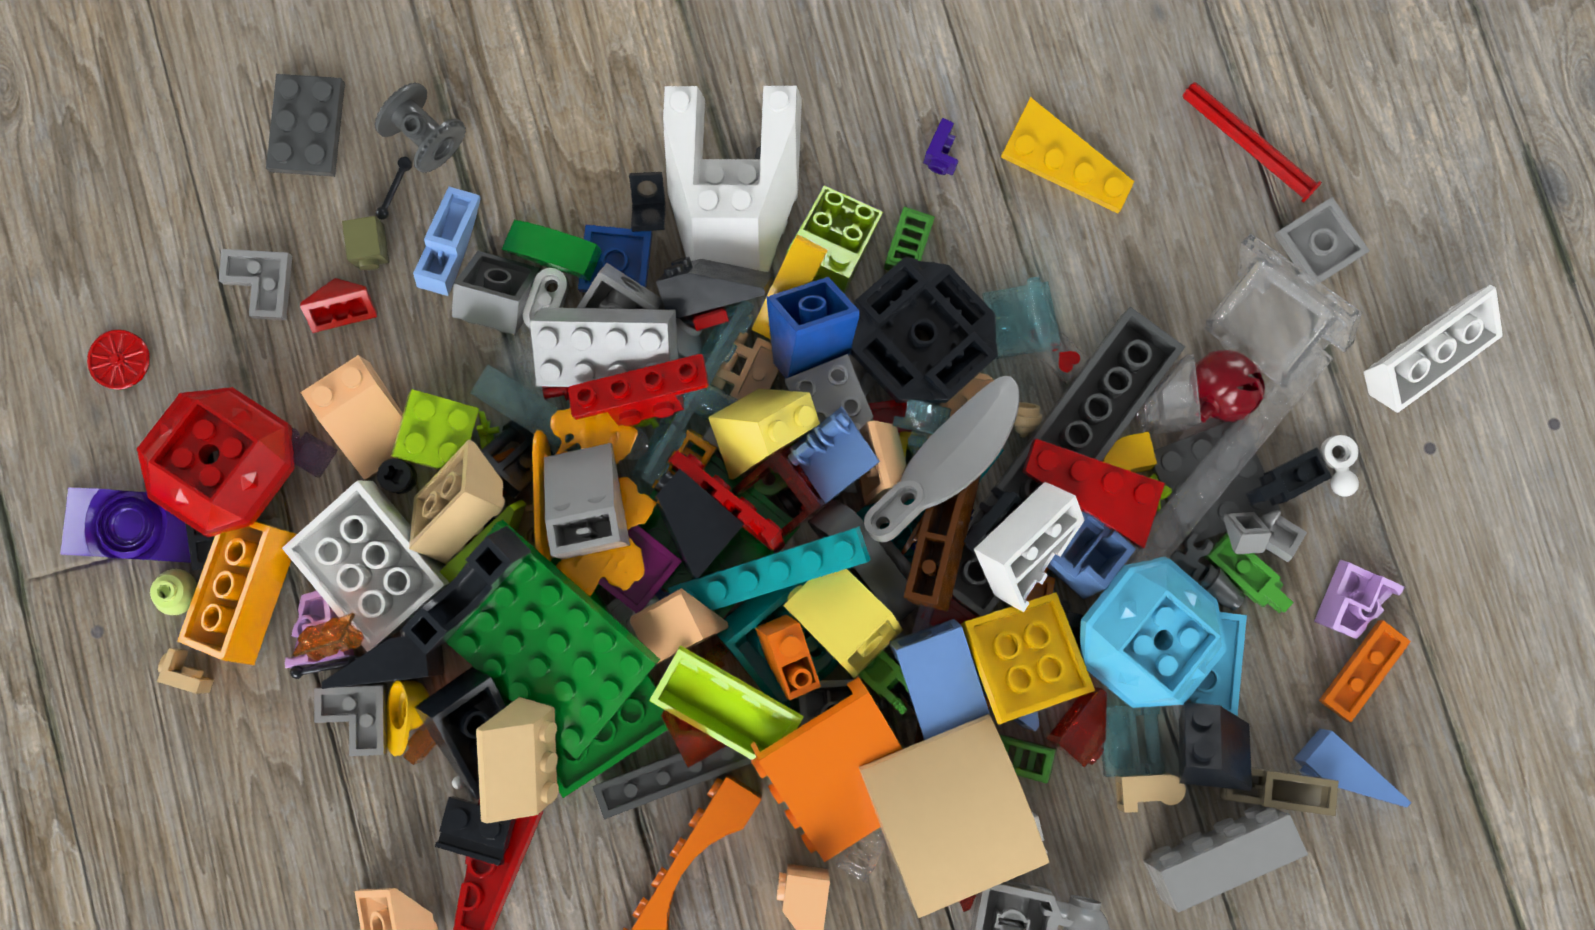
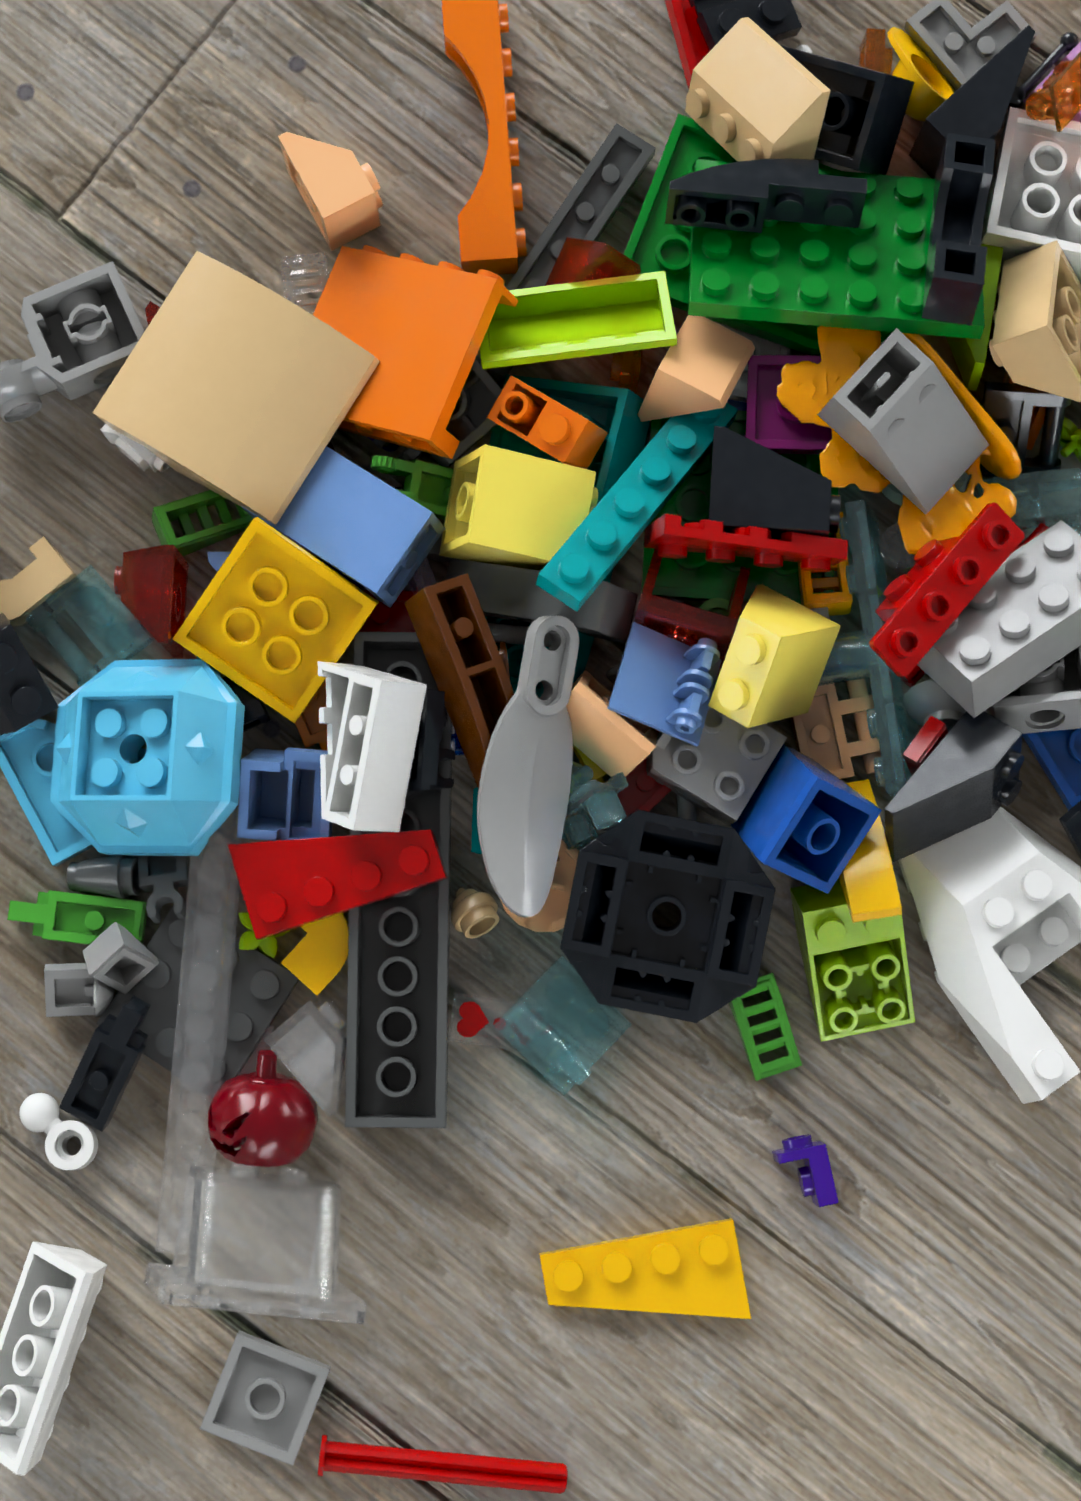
camera: 140 degrees right, 0 degrees up
(568, 707) = (747, 192): none -> black slope

